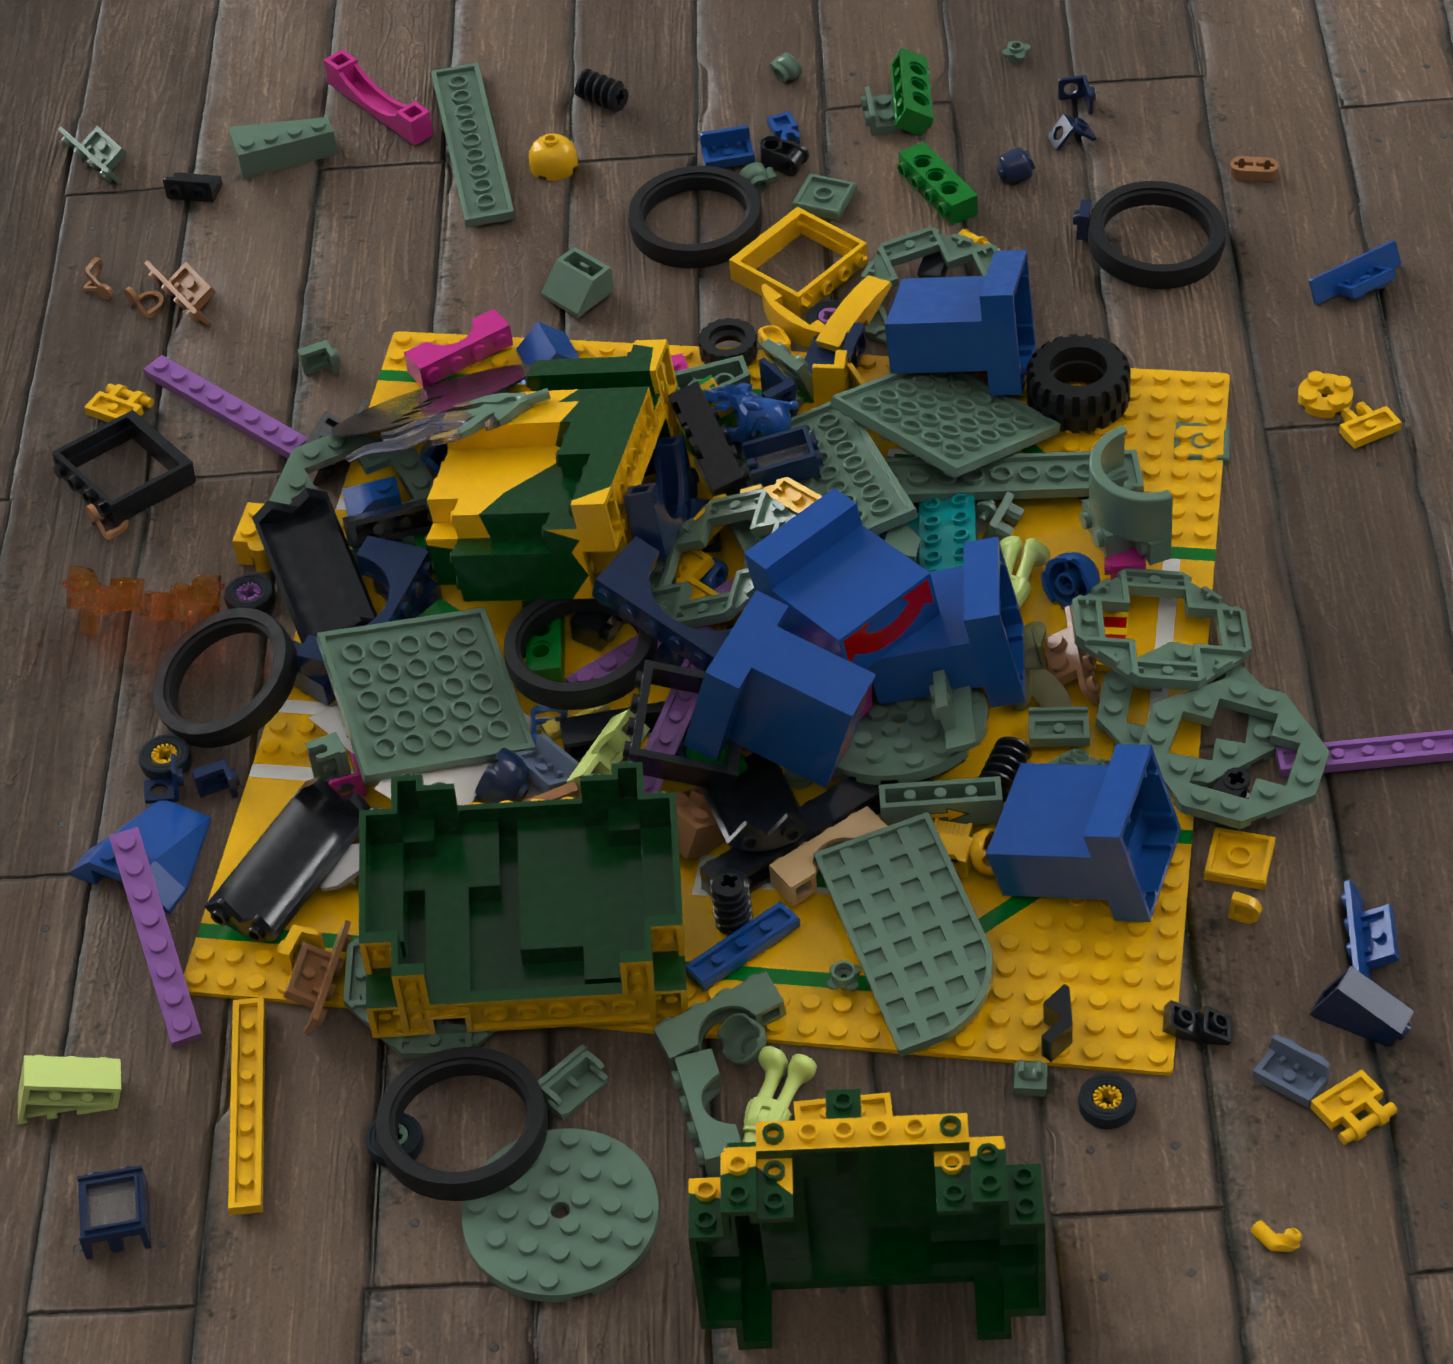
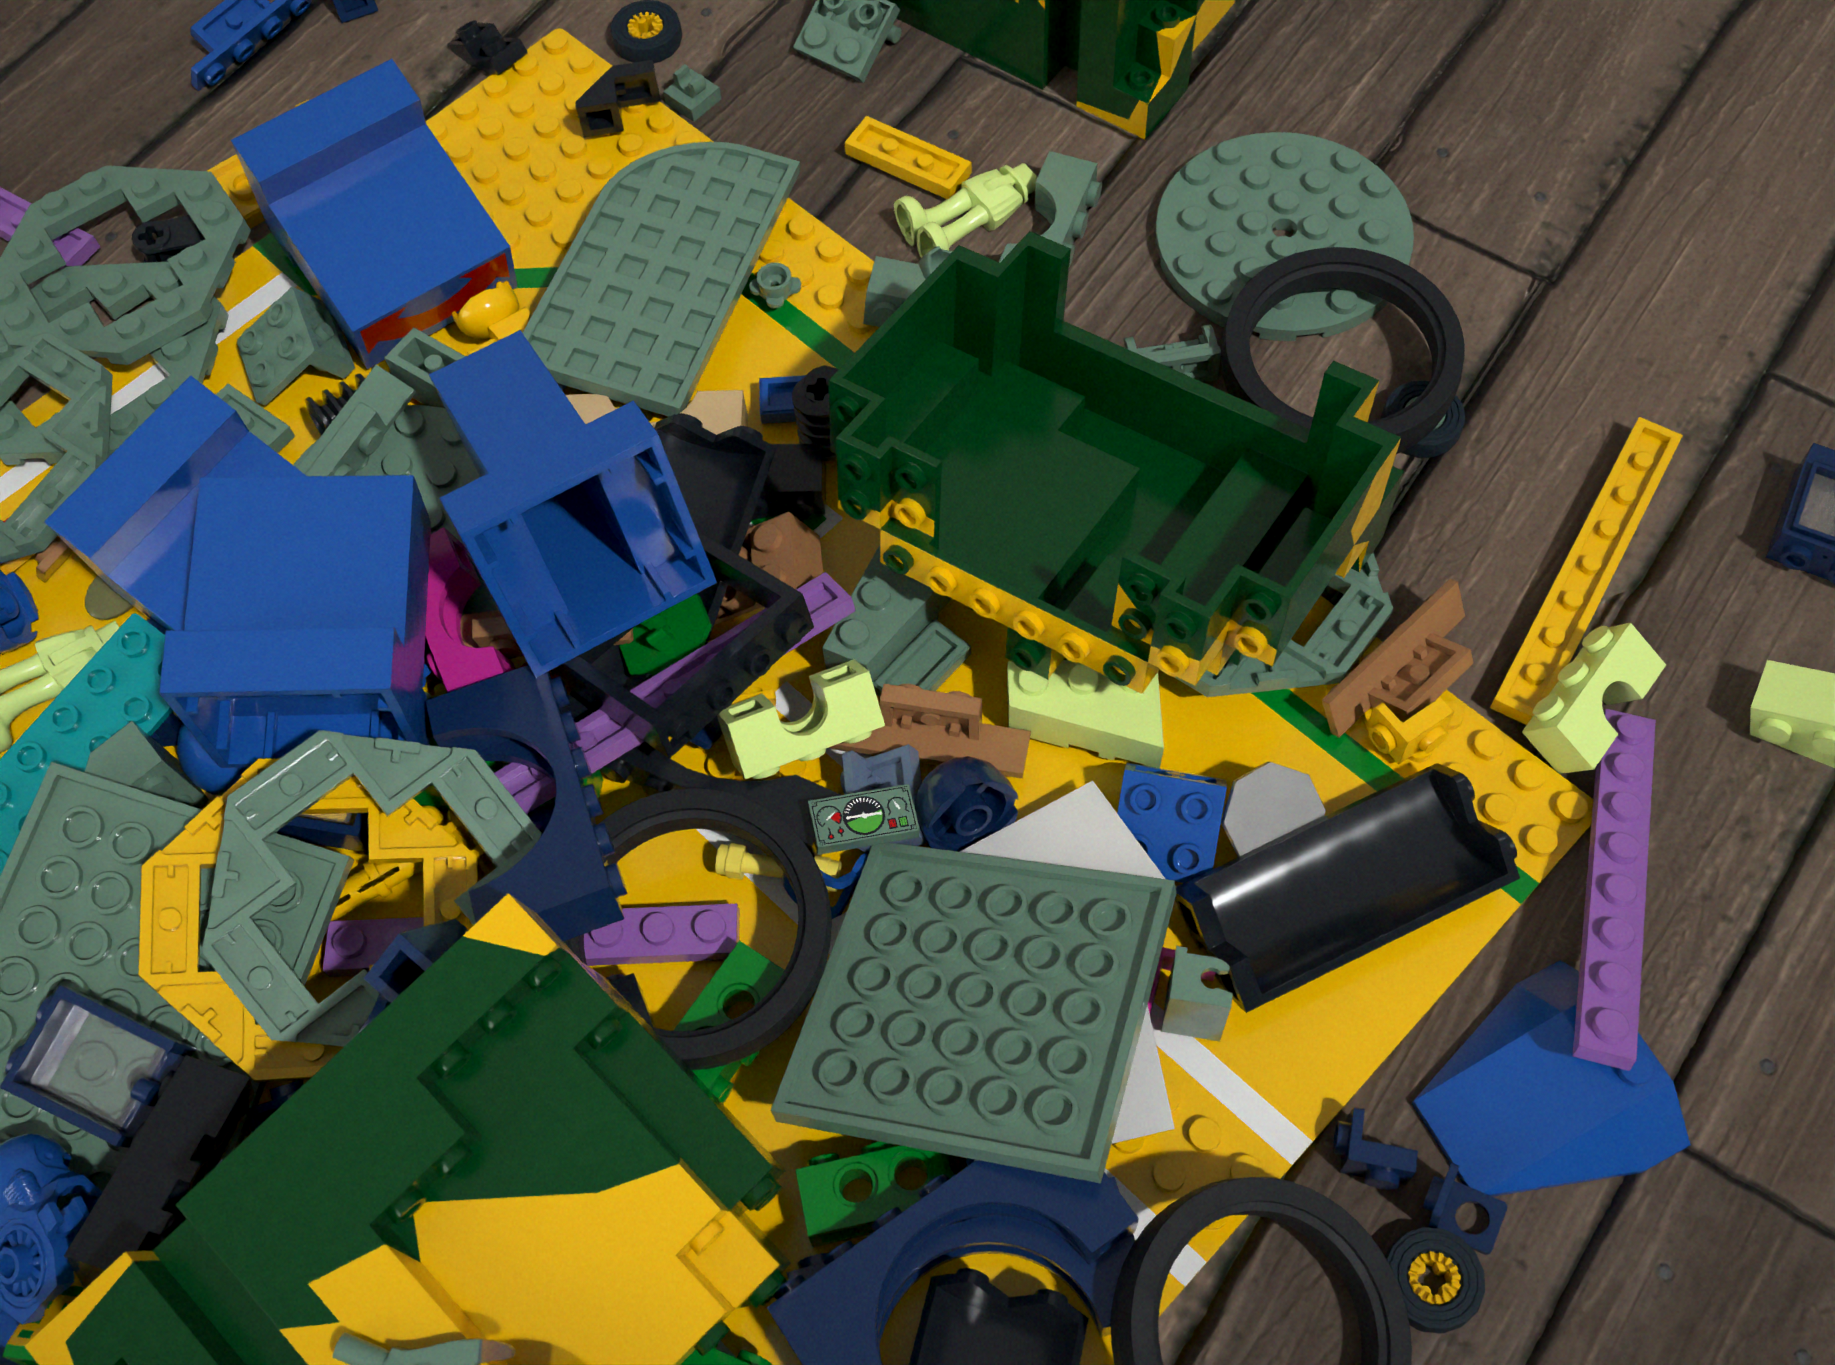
camera: 145 degrees left, 15 degrees up
(208, 1041) = (1570, 721): none -> yellowish green arch
(541, 736) = (863, 819): none -> sand green tile

